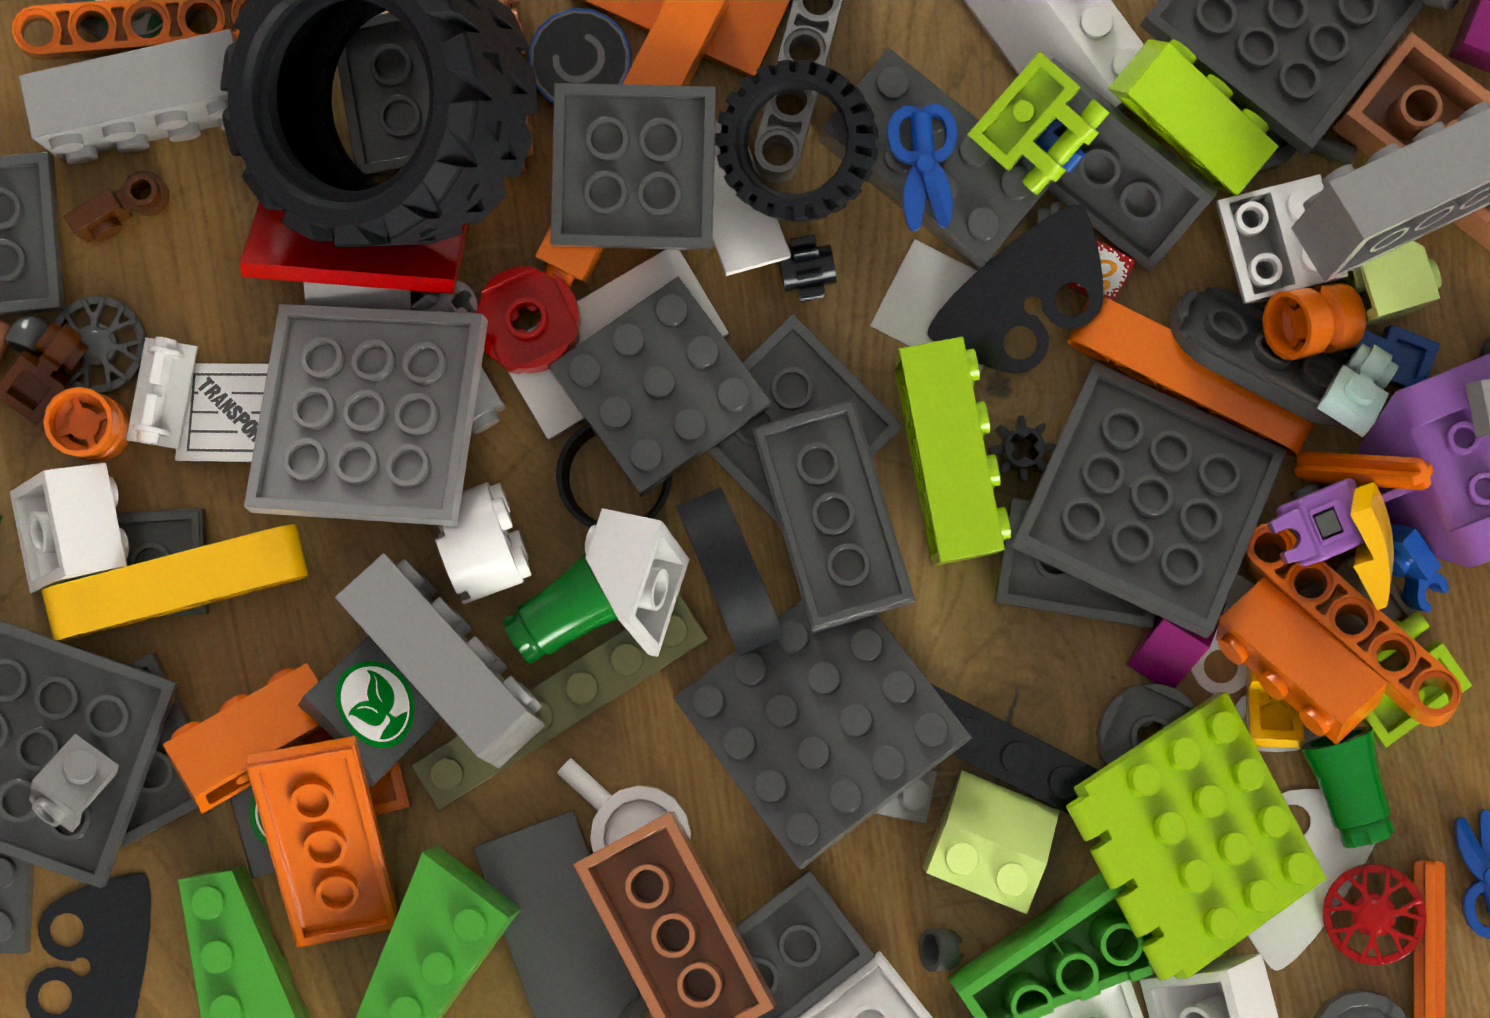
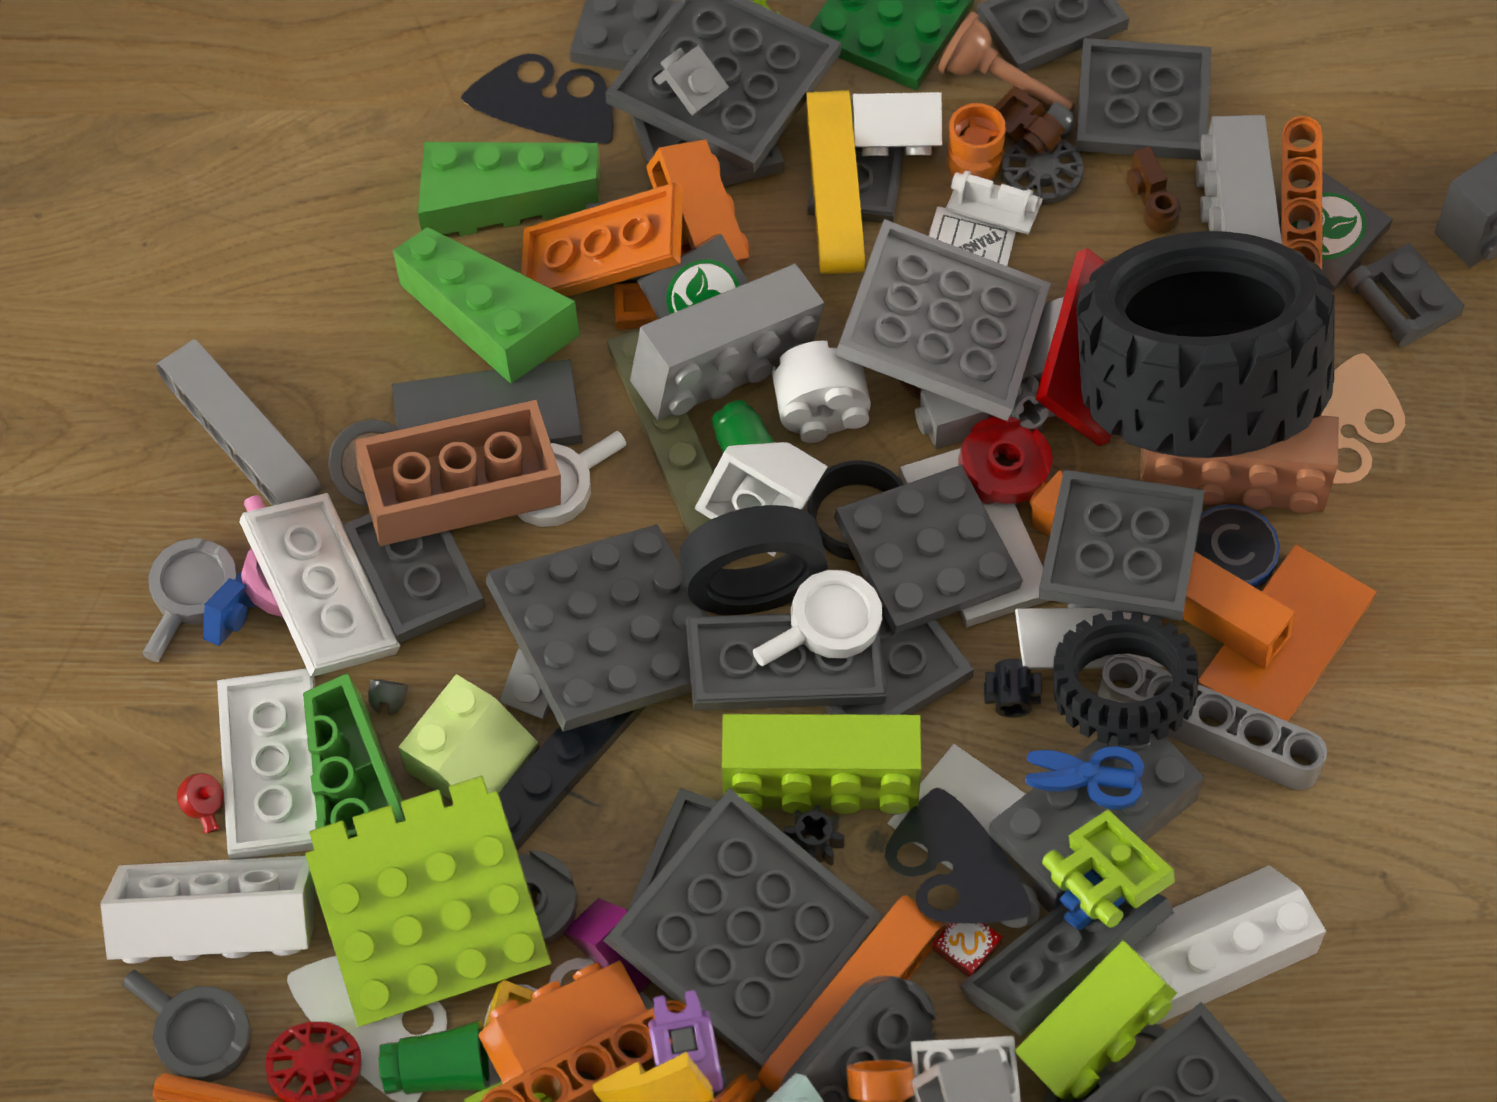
camera: 105 degrees right, 25 degrees down
(777, 472) = (831, 616): none -> white piece

